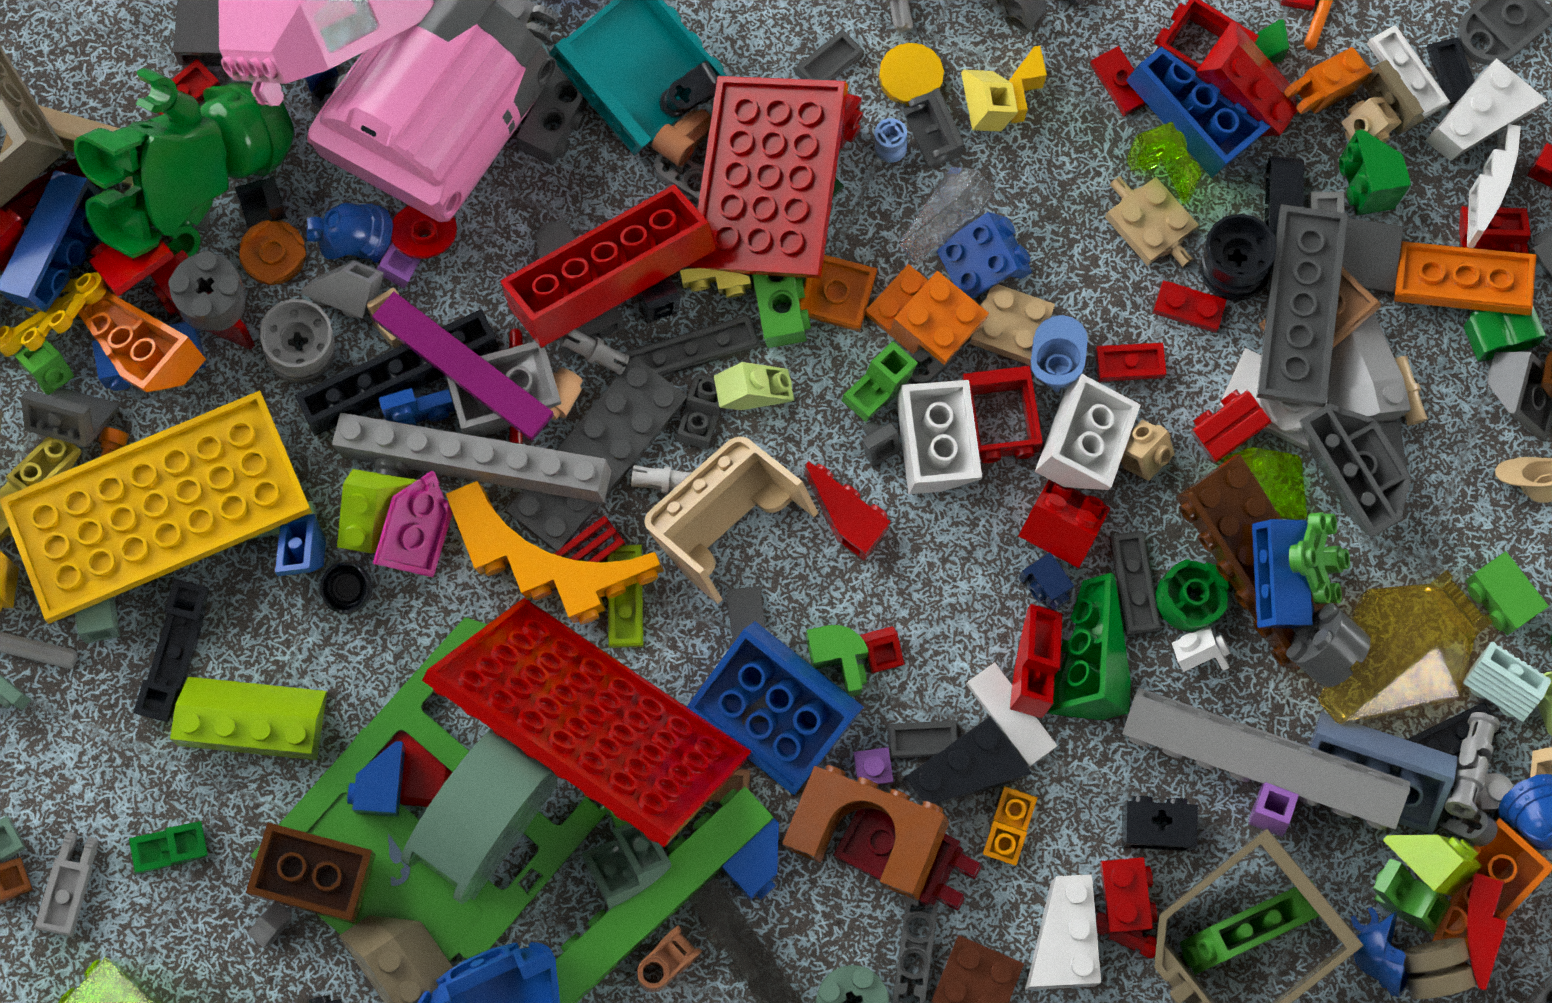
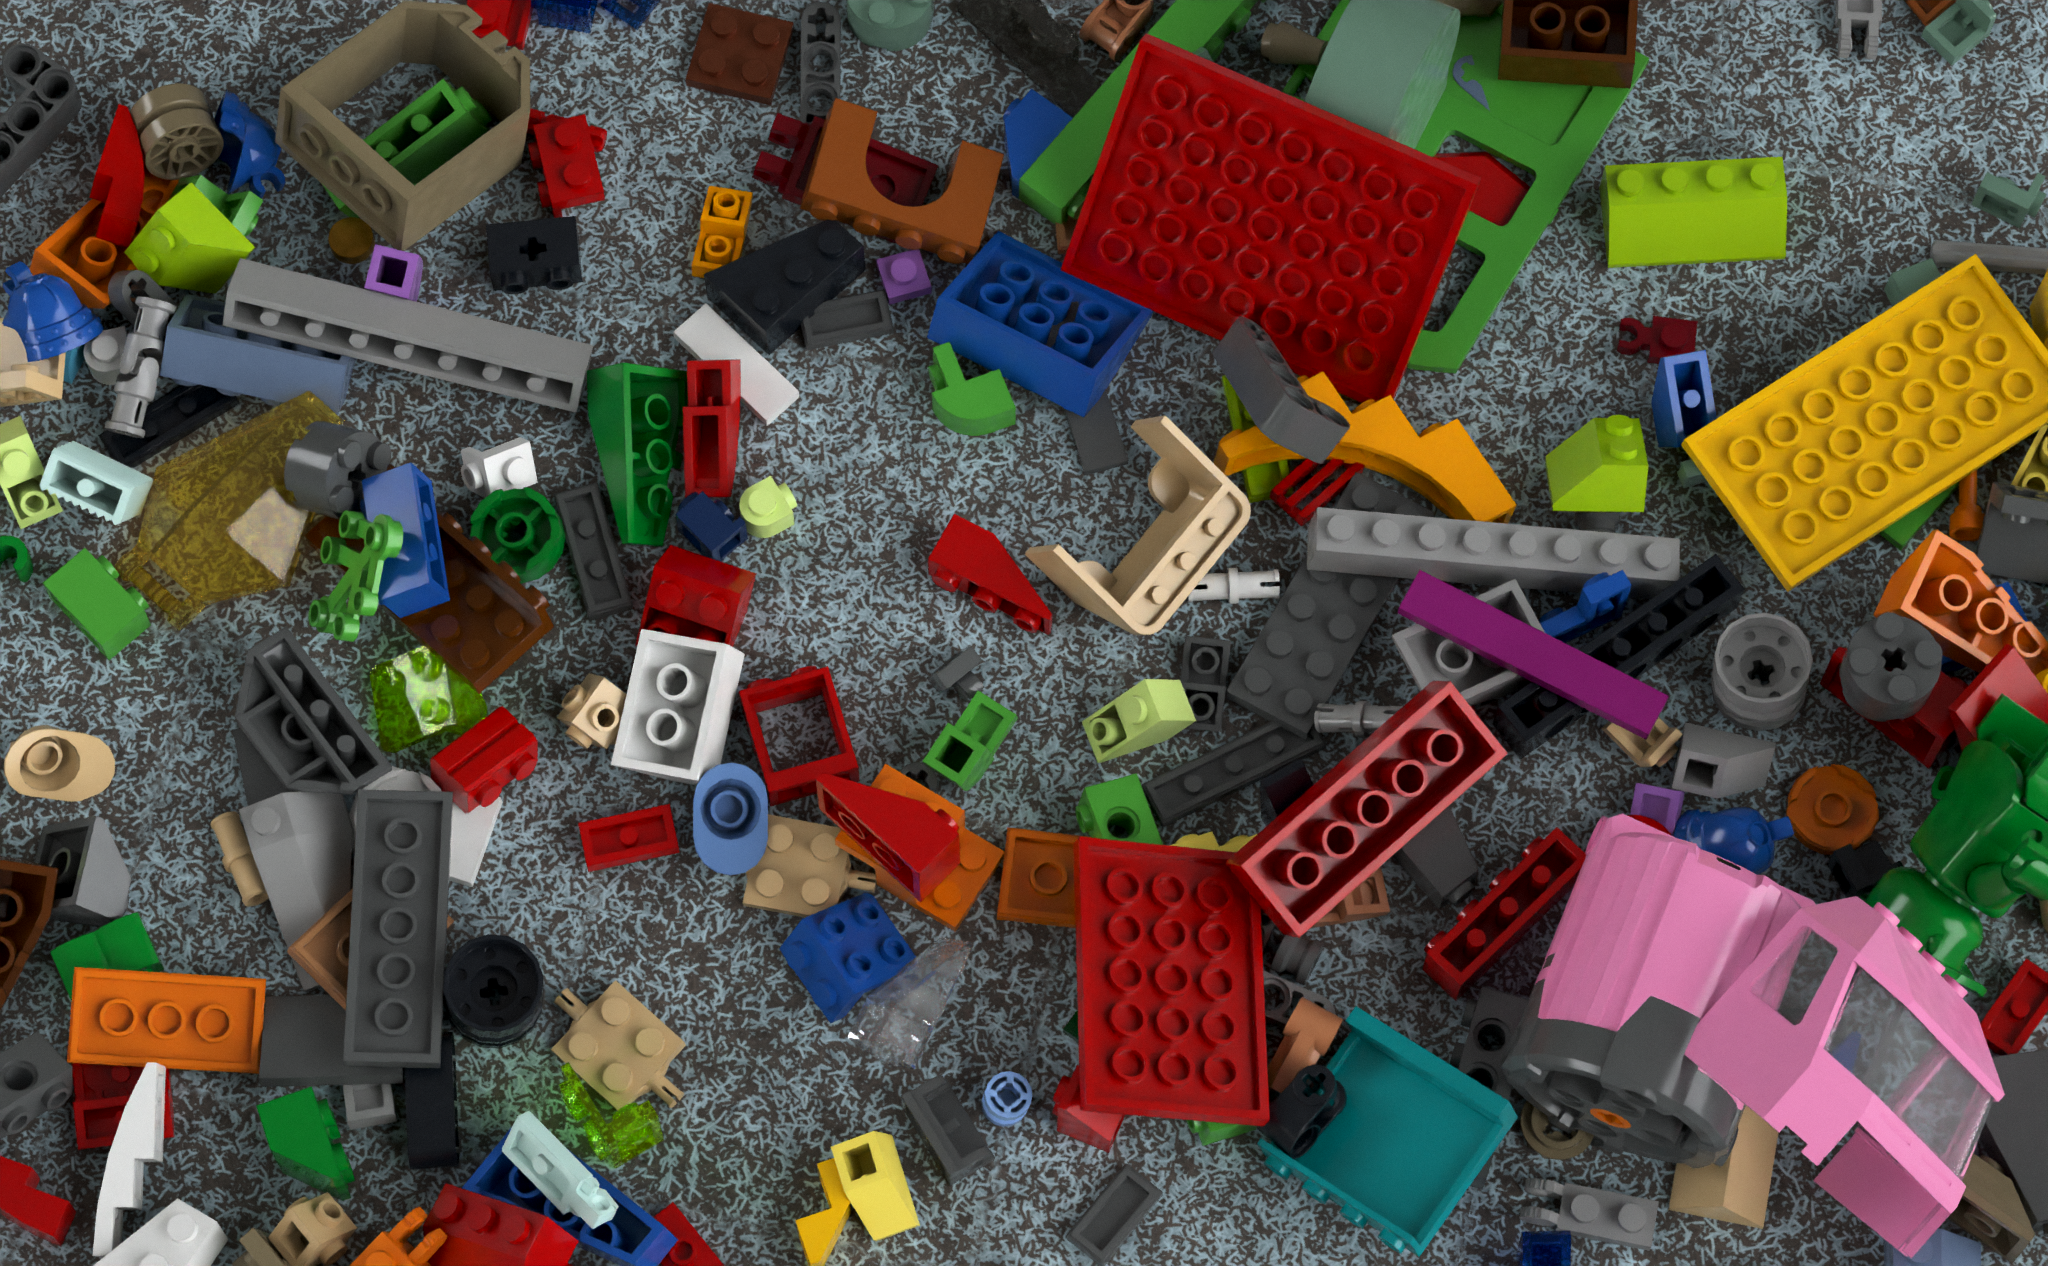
camera: 175 degrees right, 5 degrees down
(168, 847) = (1752, 60): green slope -> none
(174, 651) = (1811, 271): black slope -> none
(298, 620) = (1662, 339): none -> dark red plate
(343, 581) = (1608, 367): black hair -> none
(379, 784) = (1512, 147): blue slope -> none
(415, 528) = (1545, 453): dark pink tile -> none
(522, 204) = (1504, 914): none -> red brick
(532, 911) = (1291, 45): none -> dark tan cone
(569, 388) = (1391, 678): light nougat brick -> none
(614, 596) = (1275, 394): none -> dark grey beam
(883, 649) = (914, 421): red slope -> none
(910, 72) = (992, 1214): yellow tile -> none
(938, 436) = (879, 682): white slope -> none
(951, 285) = (896, 831): none -> red slope
(1002, 591) = (767, 508): none -> yellowish green plate
(1067, 938) = (637, 105): white wedge -> none
(1189, 306) = (556, 933): red plate -> none
(1206, 106) = (557, 1171): none -> light aqua hinge
(1306, 861) = (351, 240): none -> pearl gold tile

